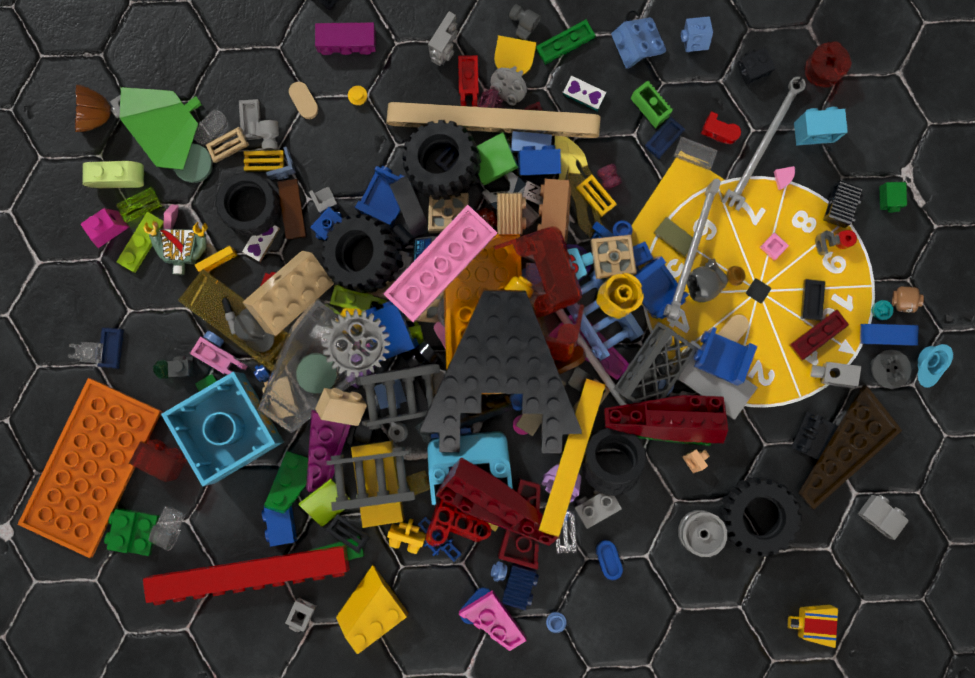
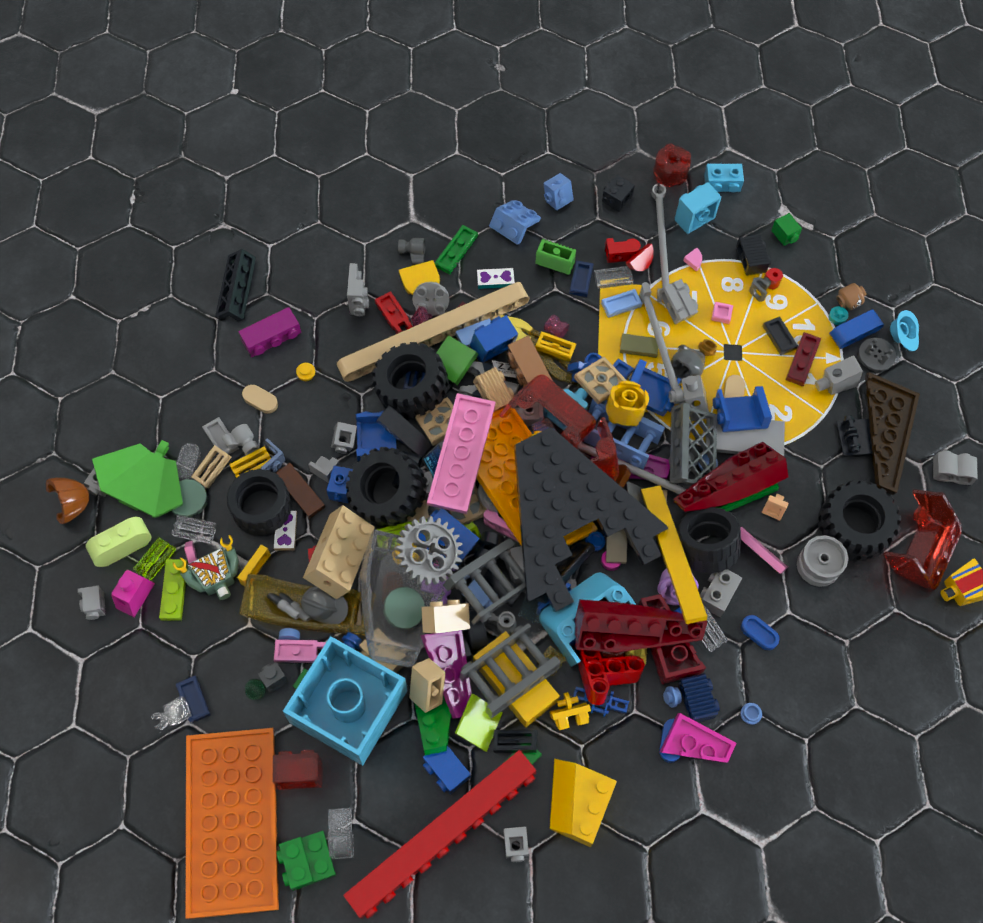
camera: 30 degrees left, 20 degrees down
(68, 217) = (92, 602): none -> light grey brick
(172, 185) = (181, 519): none -> clear tile
(220, 312) = (283, 605): none -> light grey piece
(297, 451) = (427, 685): none -> tan brick
(362, 179) = (347, 432): none -> light grey brick
(657, 492) = (762, 551): none -> bright pink tile
(686, 184) = (621, 303): none -> light blue tile
(690, 318) = (694, 390): none -> light grey torso
(733, 150) = (641, 259): none -> tile
(738, 215) = (678, 301): none -> light grey brick
(808, 573) = (932, 543): none -> clear red windscreen
(870, 105) = (725, 177): none -> medium azure brick

